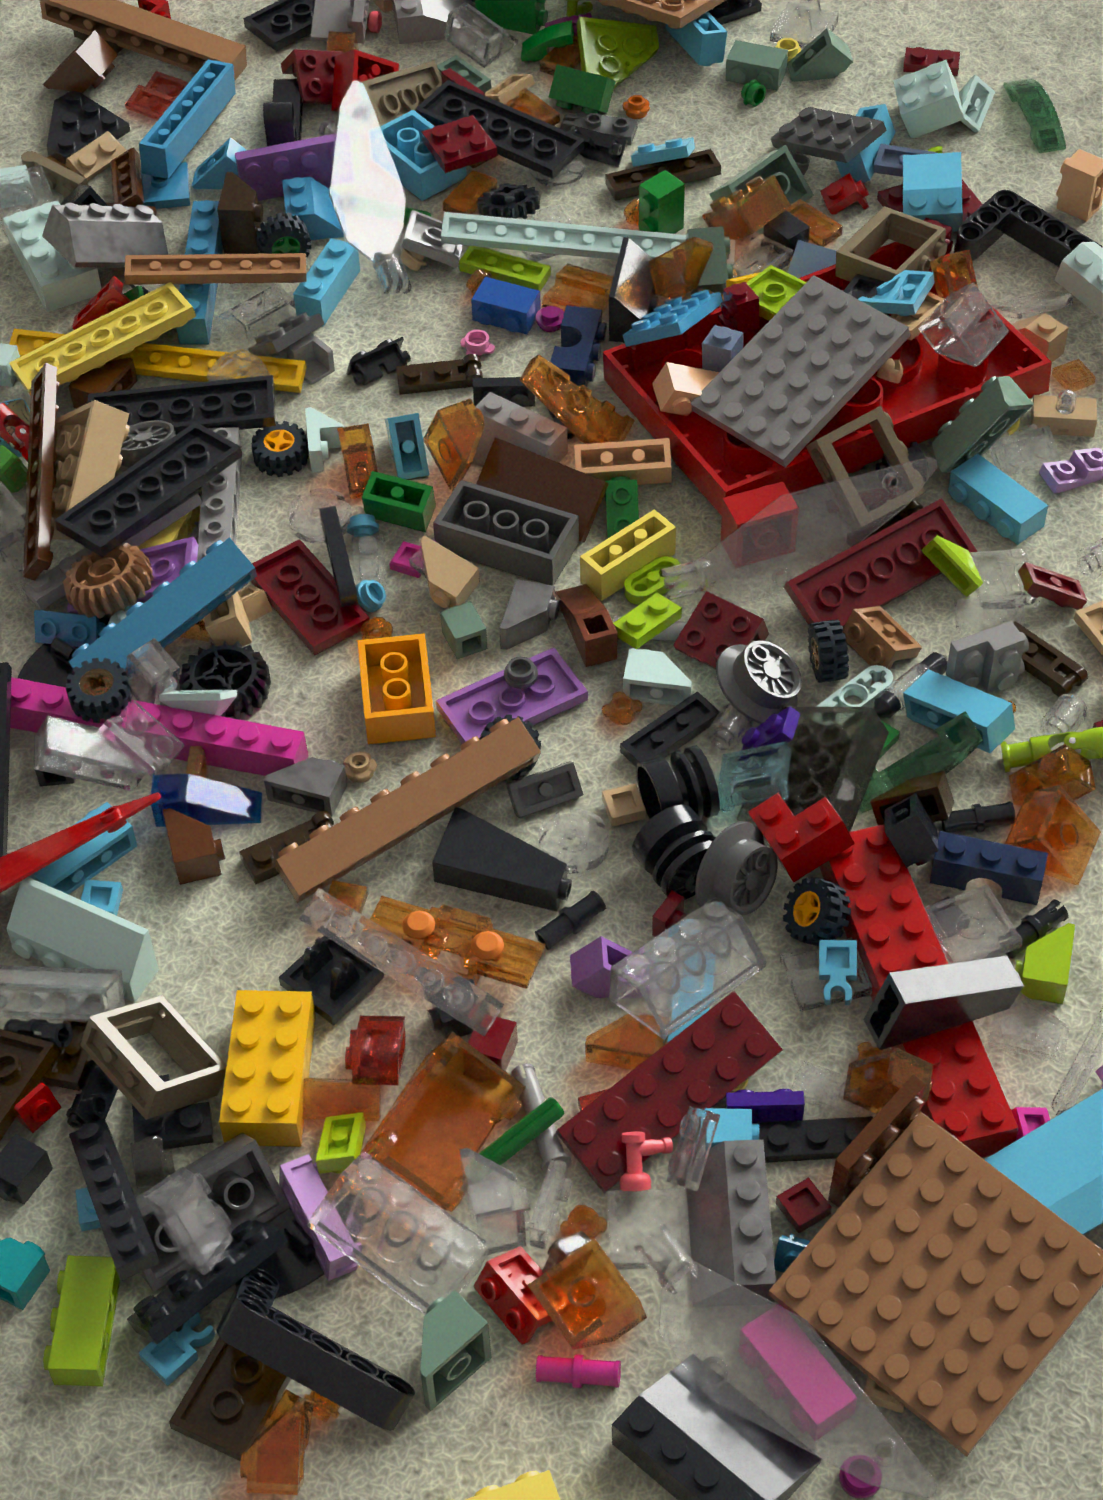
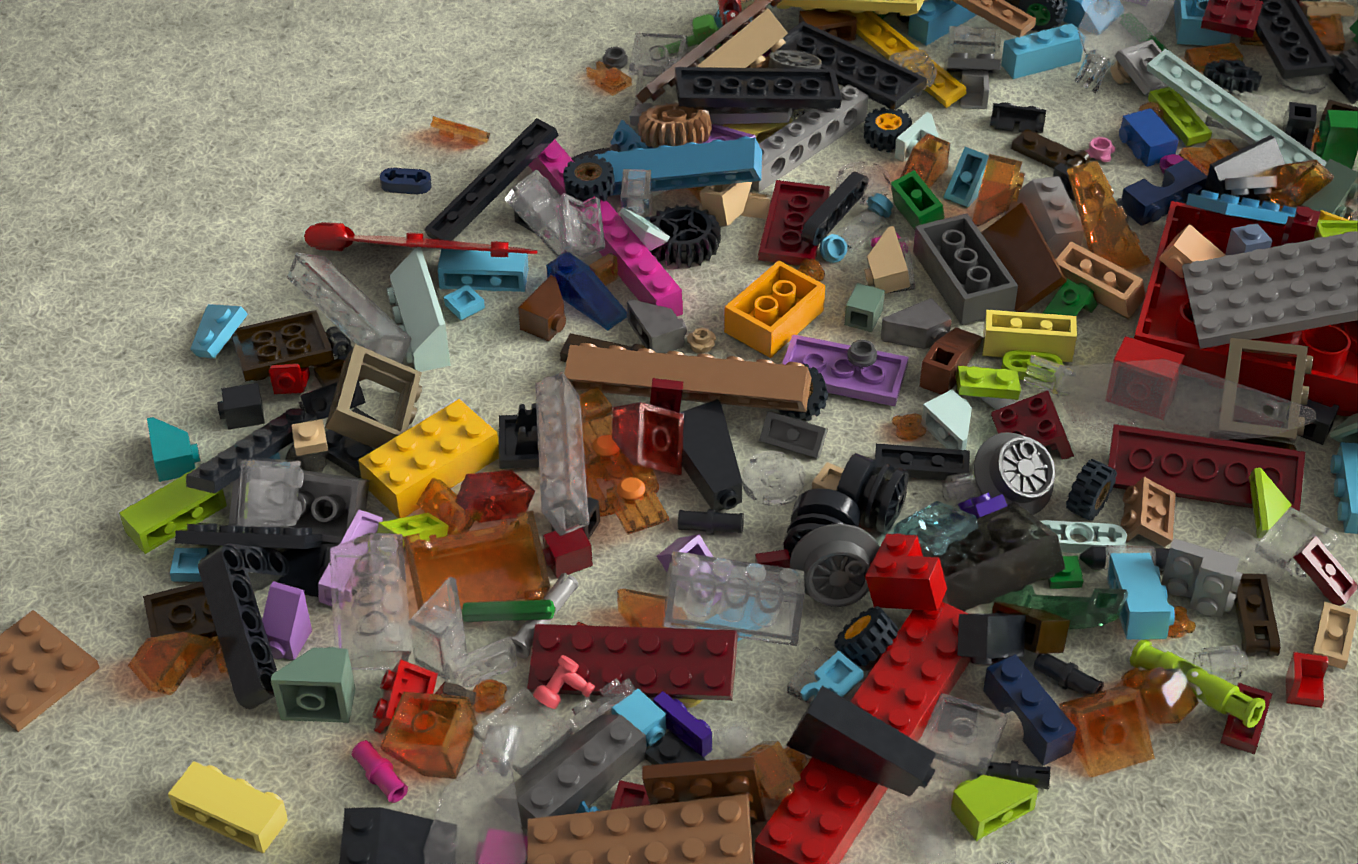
camera: 45 degrees right, 5 degrees down
(145, 1140) = (309, 437): none -> tan plate
(340, 1317) = (286, 620): none -> medium lavender slope
(418, 848) = (666, 394): none -> dark red plate
(451, 888) = (649, 436): none -> clear red slope
(611, 210) = (1300, 122): none -> black brick
(653, 290) = (1241, 185): none -> light grey plate

